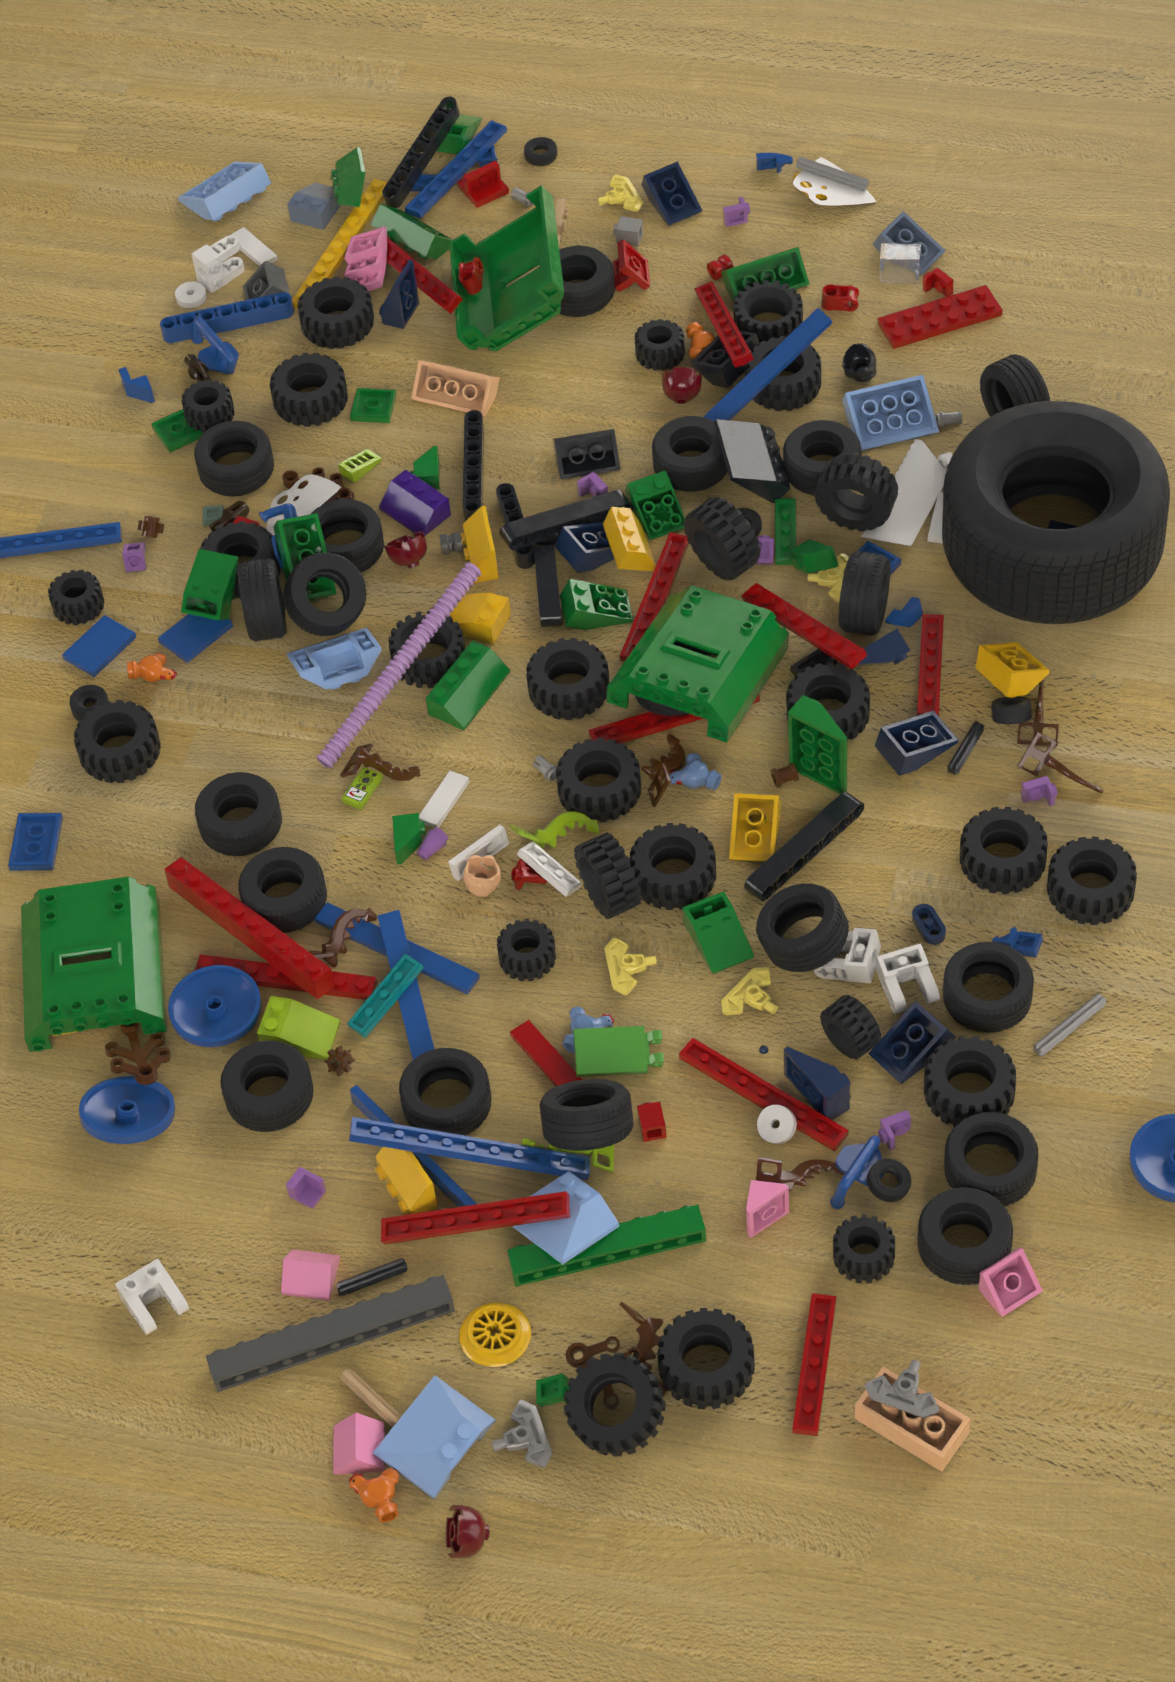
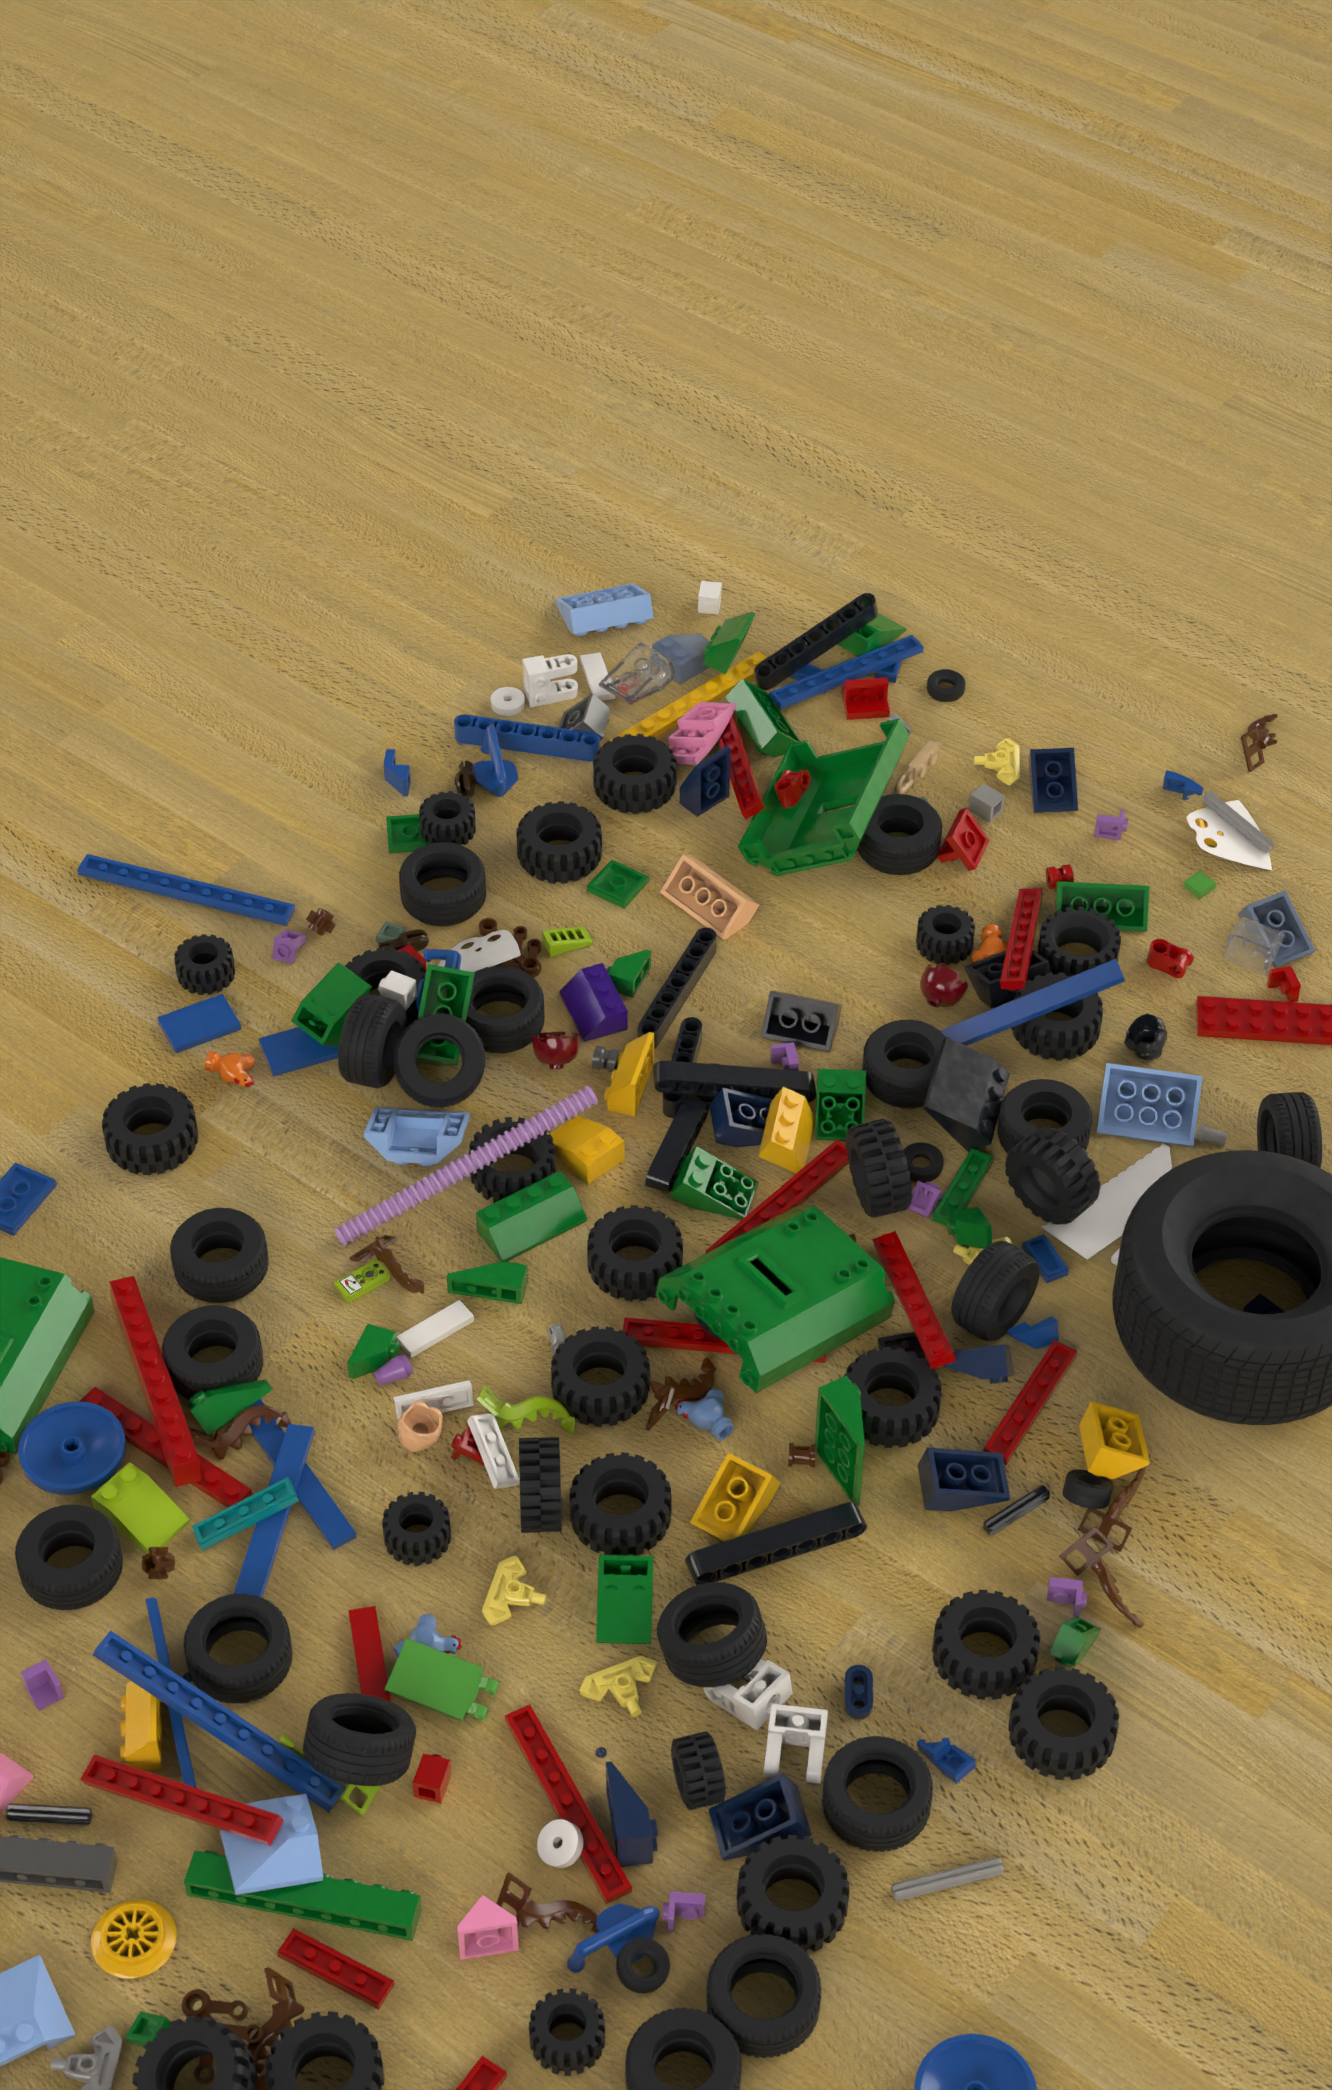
camera: 20 degrees right, 5 degrees down
(86, 694) = (151, 1068): black tyre -> none
(259, 549) = (399, 988): none -> white brick
(289, 232) = (639, 674): none -> clear slope
(307, 150) = (709, 597): none -> white brick
(315, 924) = (222, 1404): none -> green slope
(469, 745) = (494, 1281): none -> green slope
(662, 1285) = (336, 1968): none -> red tile
(813, 103) = (1261, 739): none -> reddish brown piece
(829, 233) = (1199, 884): none -> bright green tile
(1063, 822) = (1074, 1641): none -> green slope

